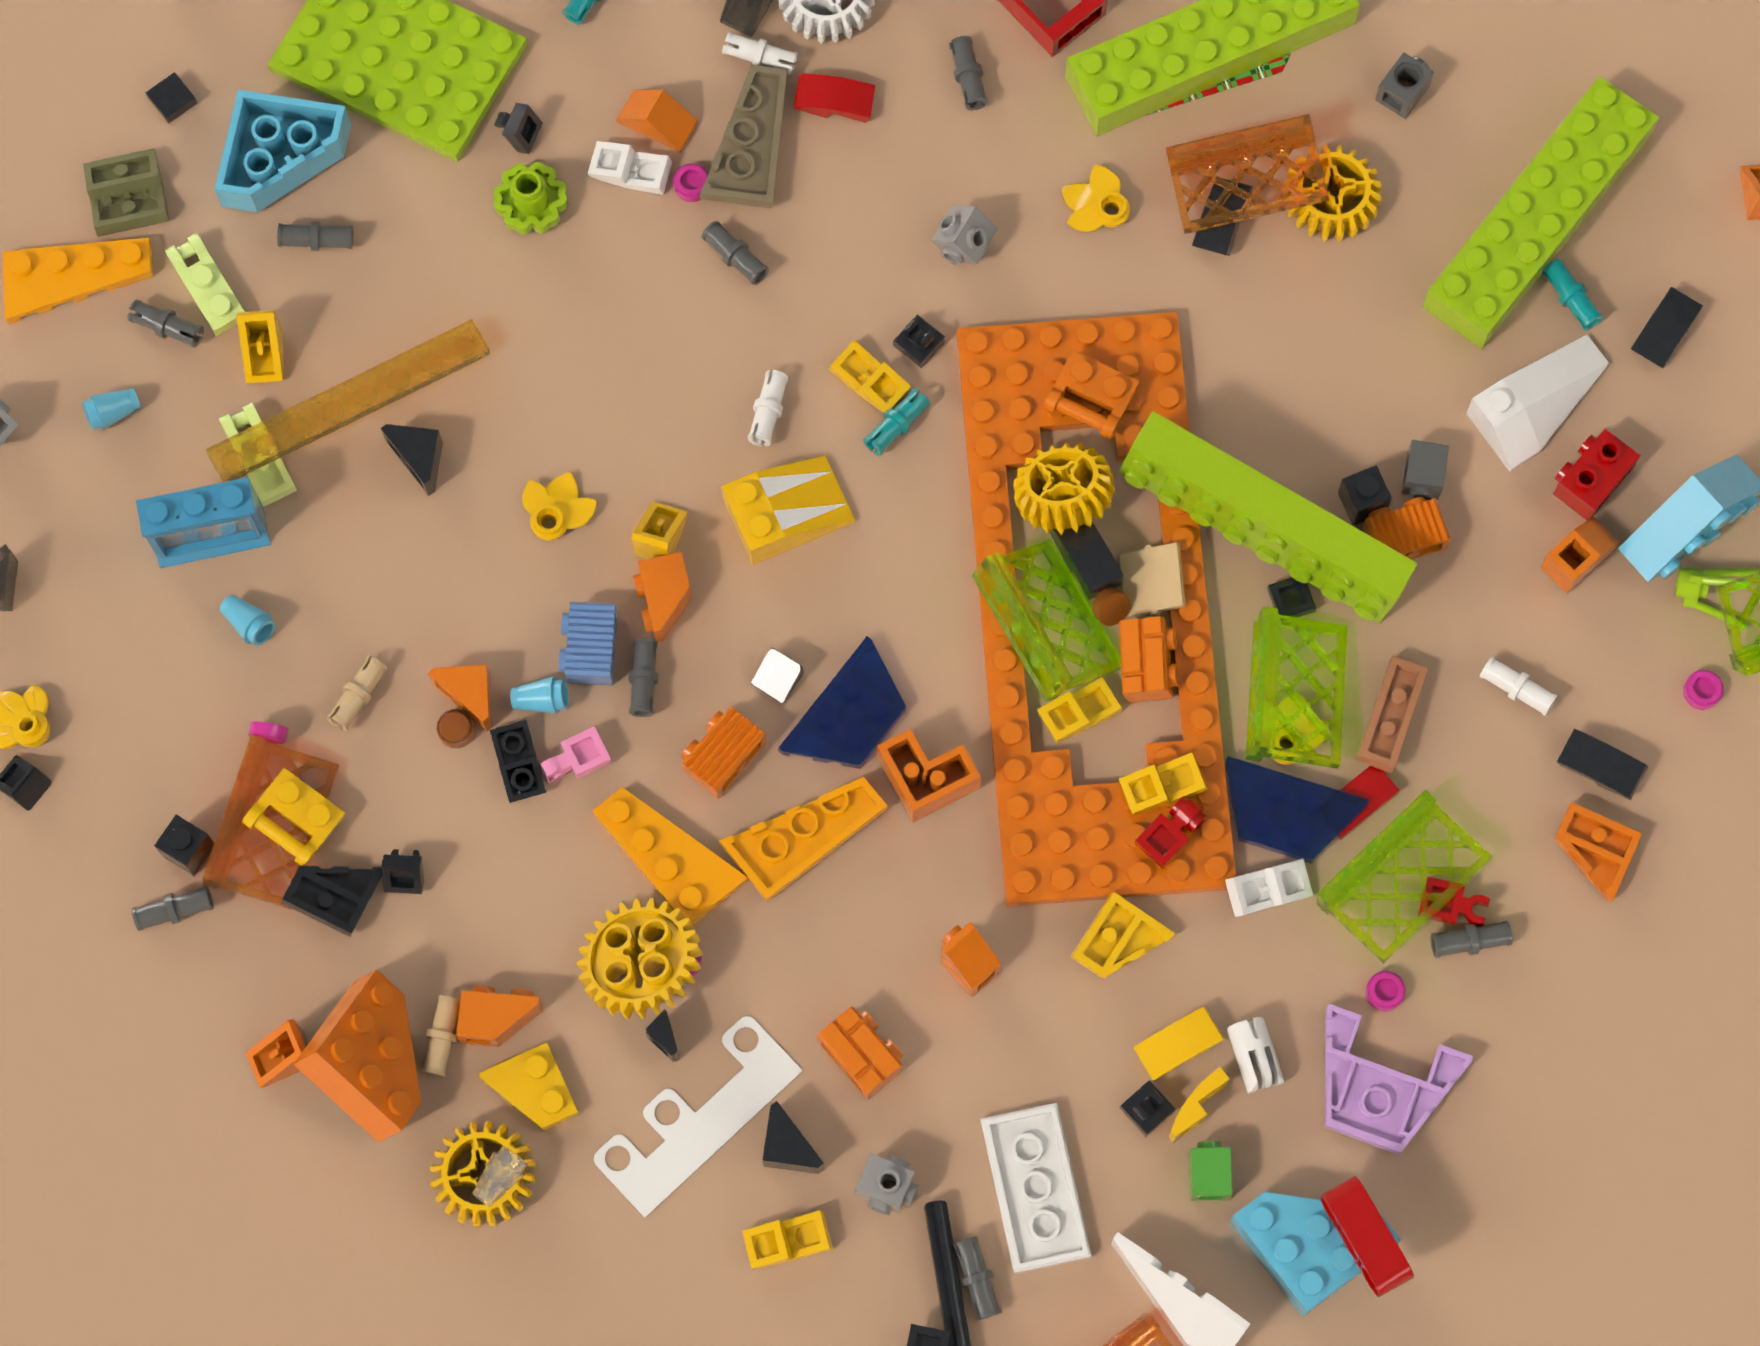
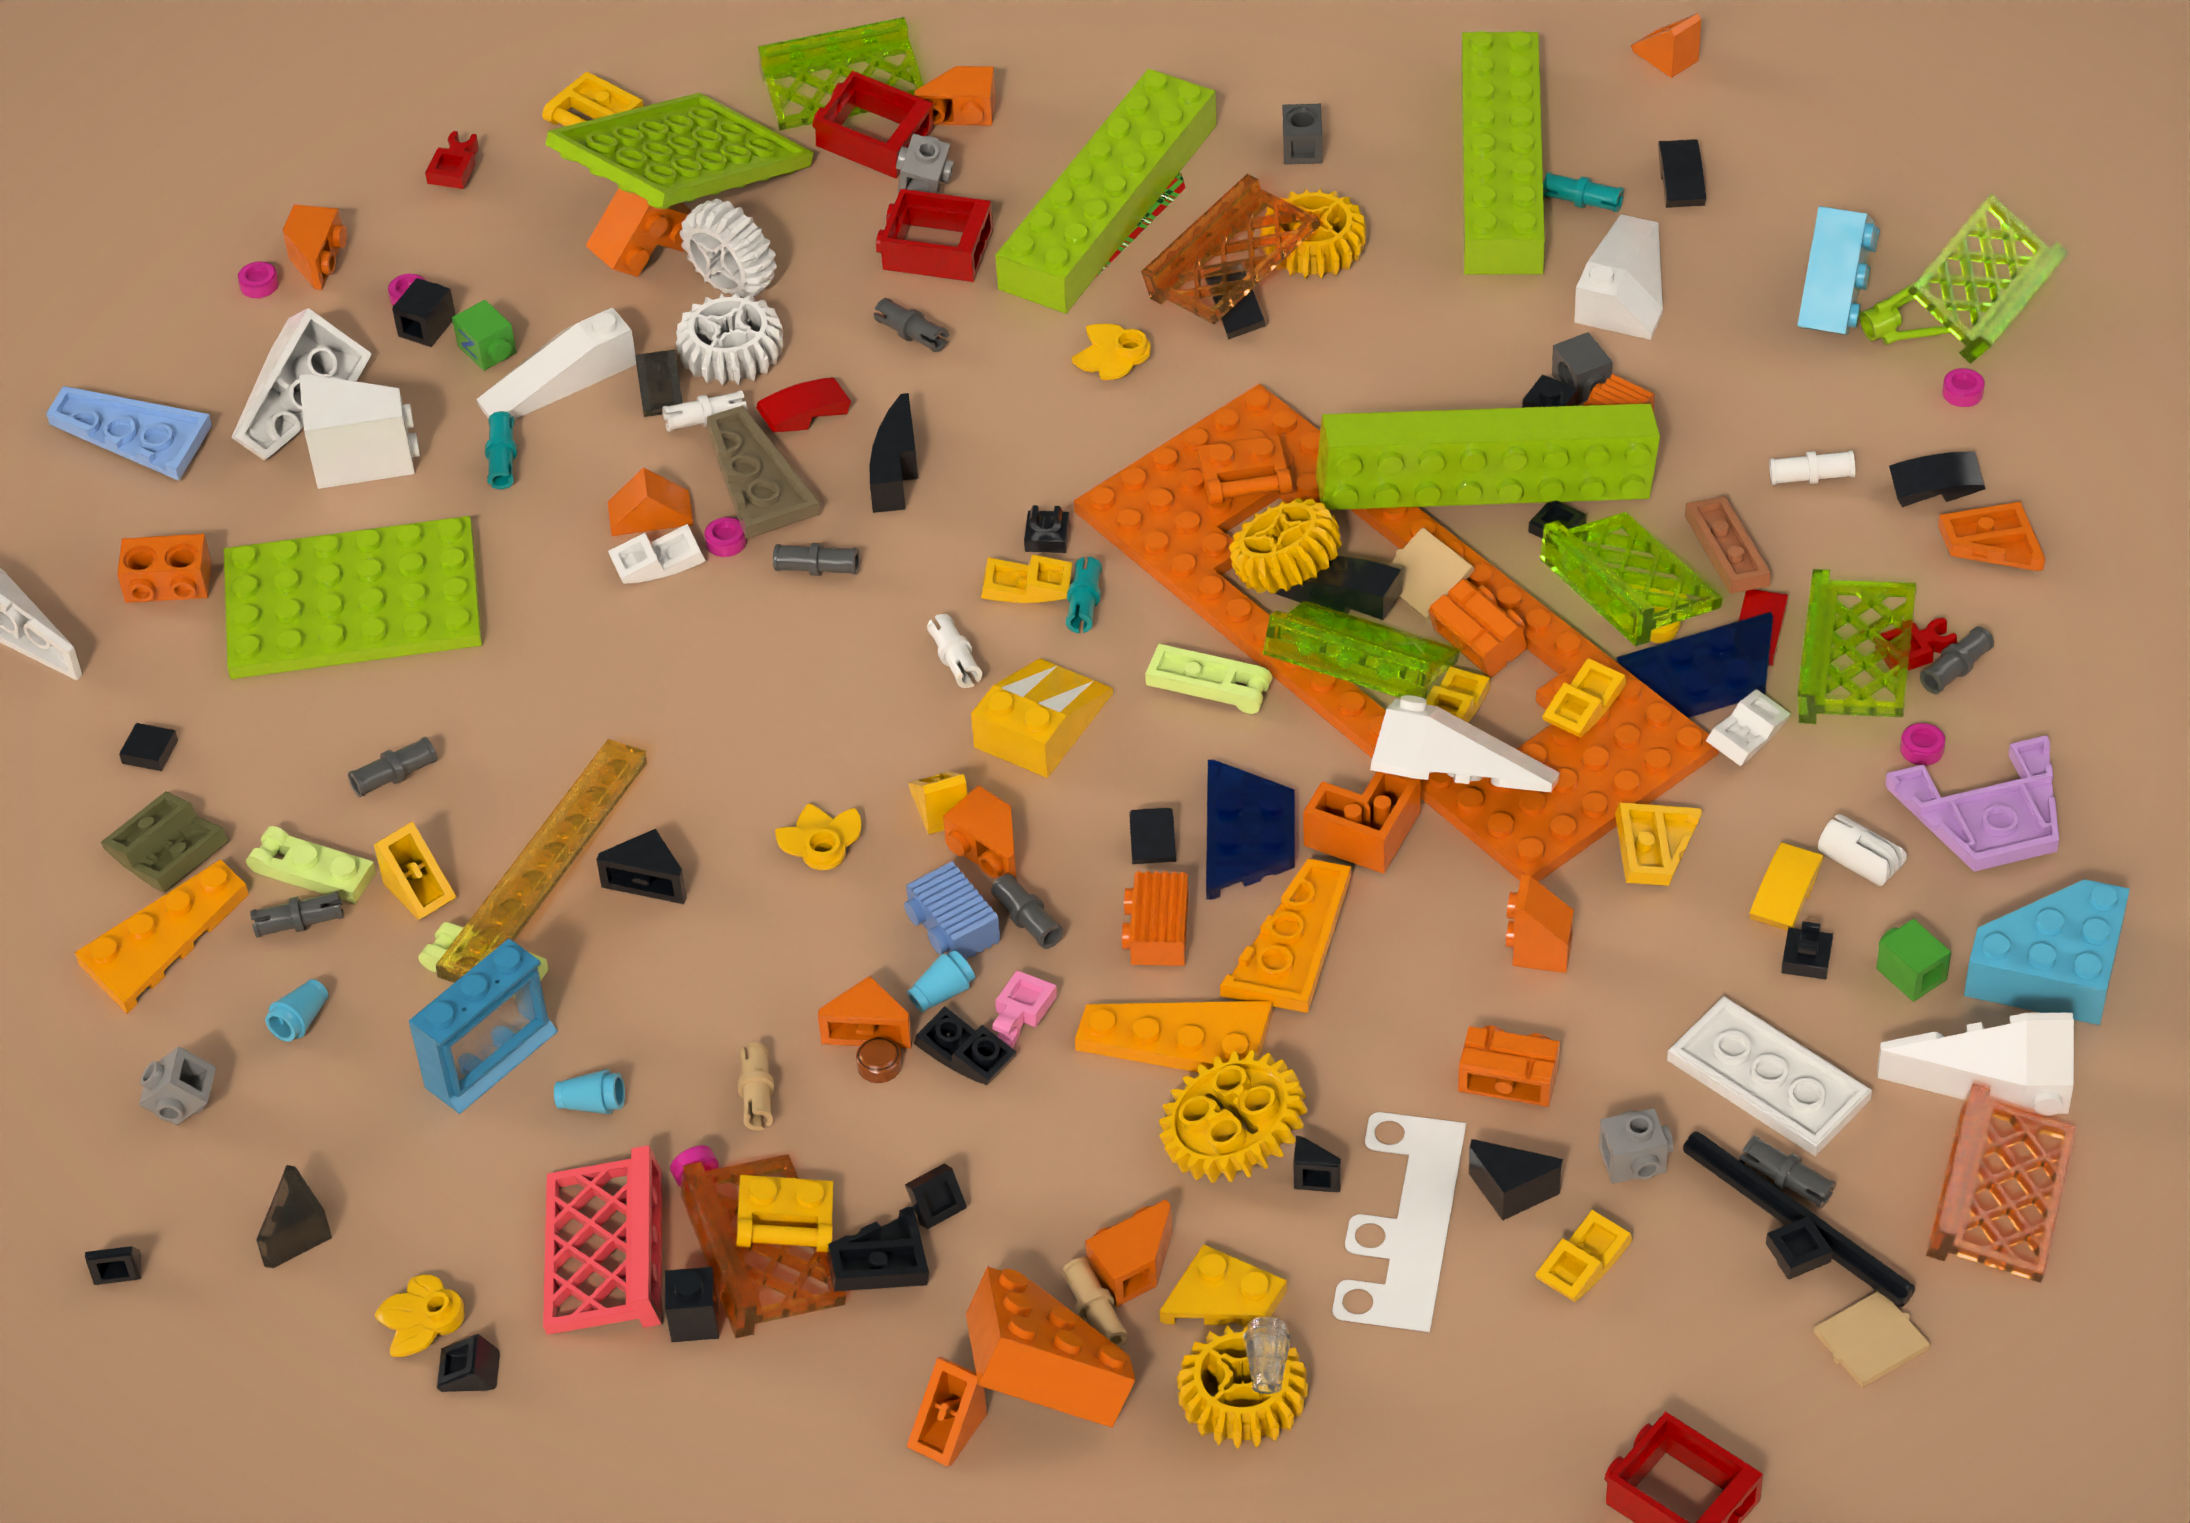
camera: 35 degrees left, 25 degrees down
(172, 908) = (723, 1368): dark grey pin -> none
(199, 758) = (641, 1248): none -> coral fence
(277, 147) = (297, 712): medium azure brick -> none
(520, 127) = (522, 580): black tile -> none
(530, 198) = (581, 624): lime plant -> none
(859, 194) = (893, 457): none -> black slope
(924, 560) = (1208, 677): none -> yellowish green plate
(964, 235) = (1018, 428): light grey brick -> none
(1017, 762) = (1429, 740): none -> white wedge
(1111, 606) = (1407, 610): dark orange piece -> none
(1165, 838) = (1627, 726): red plate -> none
(1192, 1112) = (1850, 917): yellow slope -> none
(1366, 1236) = (2102, 889): red beam -> none
(1579, 554) = (1768, 354): orange slope -> none
(1595, 474) = (1726, 293): red brick -> none

